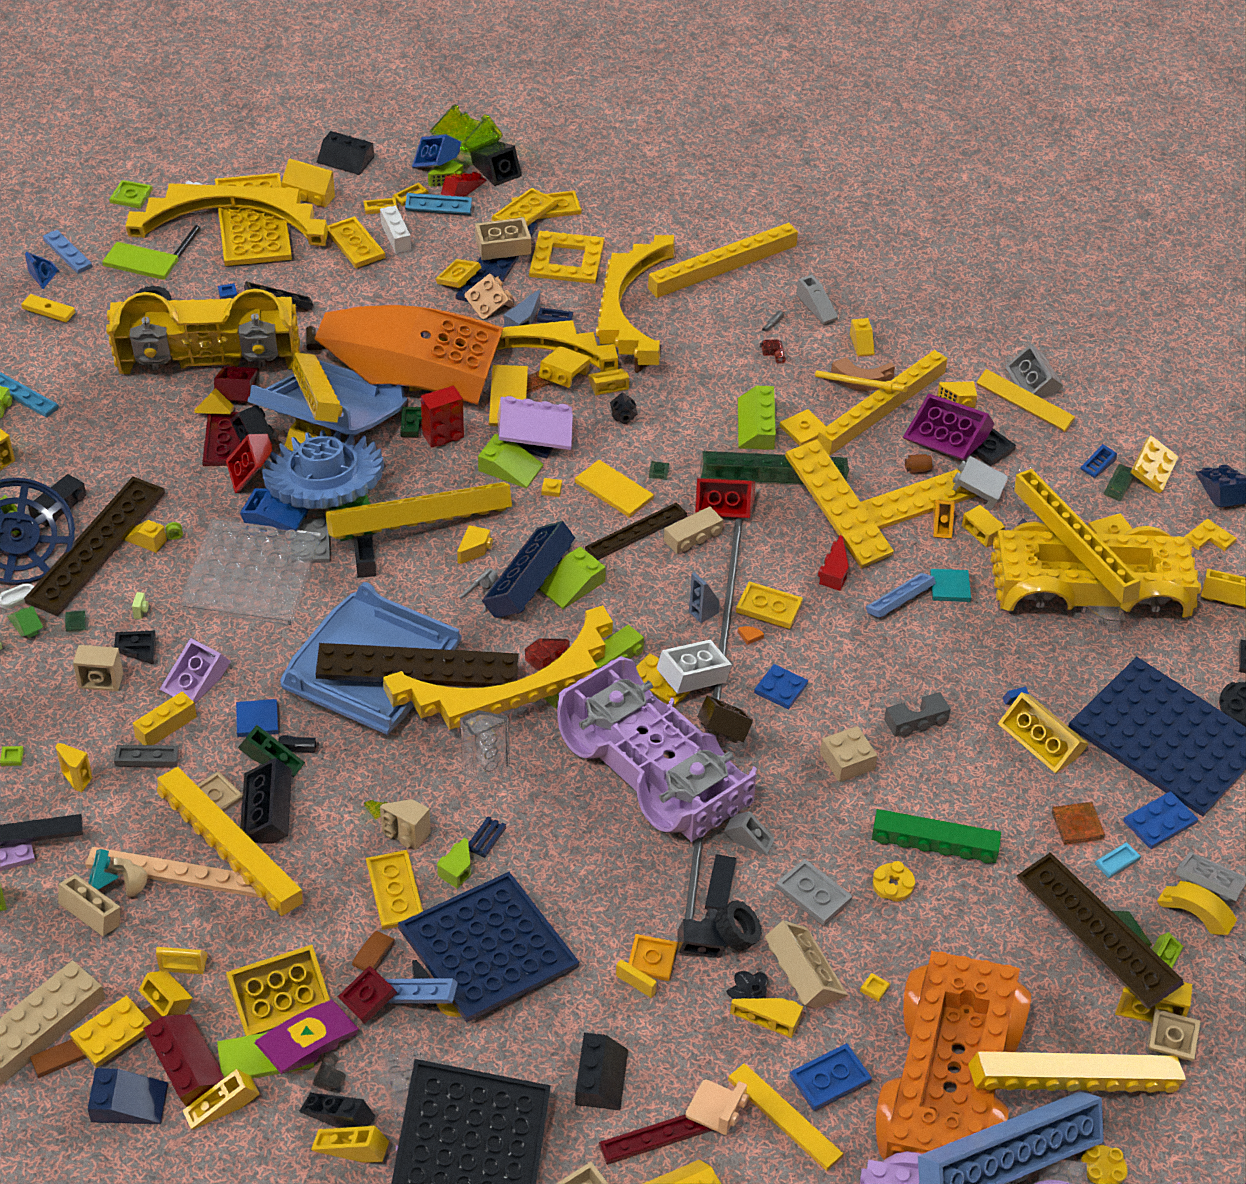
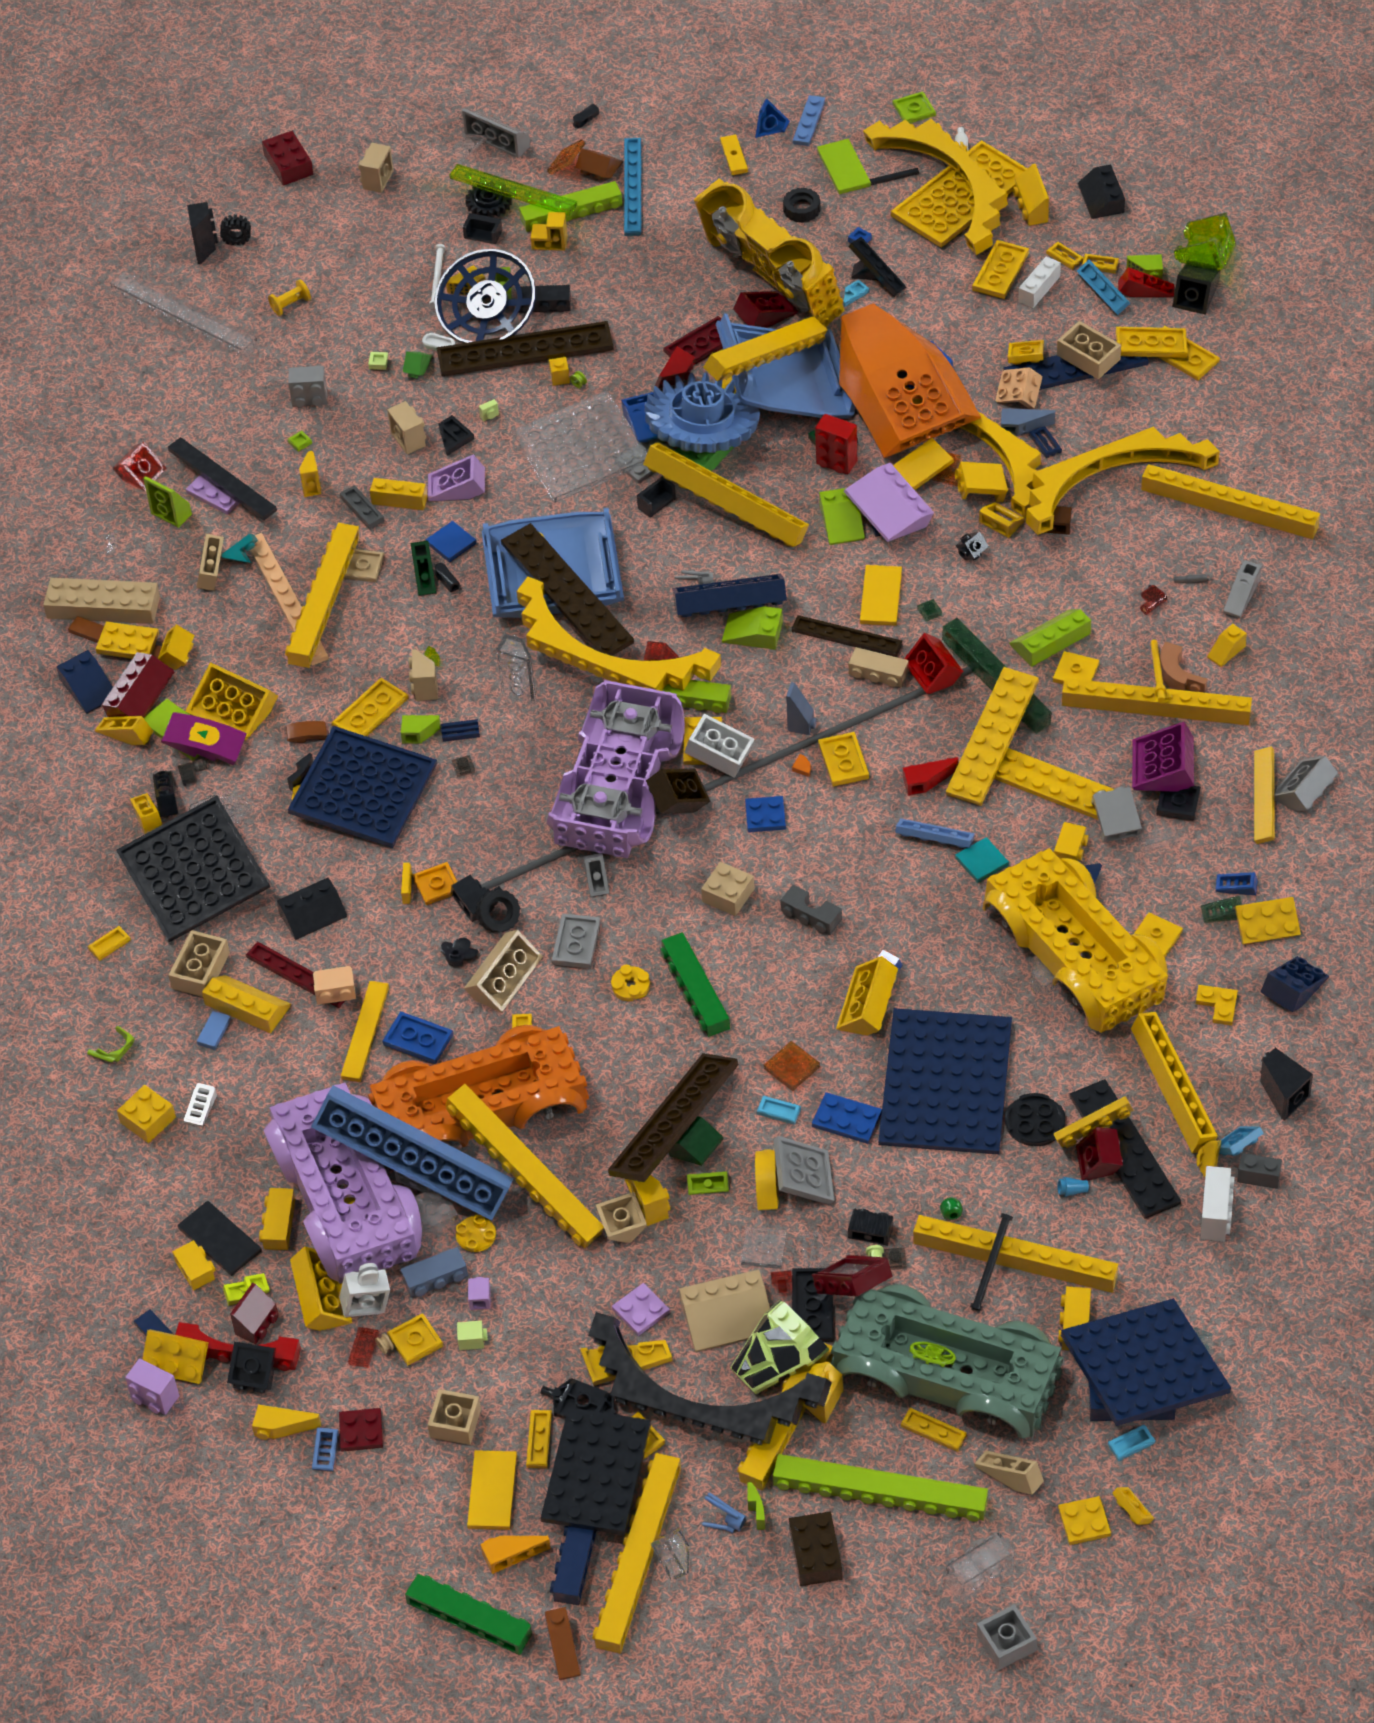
camera: 60 degrees right, 5 degrees up
(75, 620) = (444, 388): clear green plate -> none
(134, 876) = (252, 568): tan piece -> none
(181, 960) = (211, 637): yellow tile -> none
(215, 404) = (728, 307): yellow slope -> none
(251, 422) = (708, 344): black brick -> none
(266, 802) = (377, 595): black slope -> none
(367, 994) = (264, 748): dark red plate -> none
(423, 990) = (284, 769): medium blue plate -> none
(436, 150) = (1157, 243): blue slope -> none
(474, 544) = (730, 549): yellow slope -> none
(530, 858) = (463, 766): none -> clear smoke plate
(551, 487) = (843, 558): yellow plate -> none
(586, 273) = (1097, 398): yellow plate -> none
(720, 882) = (538, 883): black tile -> none
(771, 1013) = (443, 975): yellow slope -> none
(918, 463) = (1104, 764): dark orange brick -> none
(943, 518) = (1053, 813): light orange slope -> none
(958, 392) = (1223, 747): yellow slope -> none
(1077, 536) = (1074, 894): yellow brick -> none

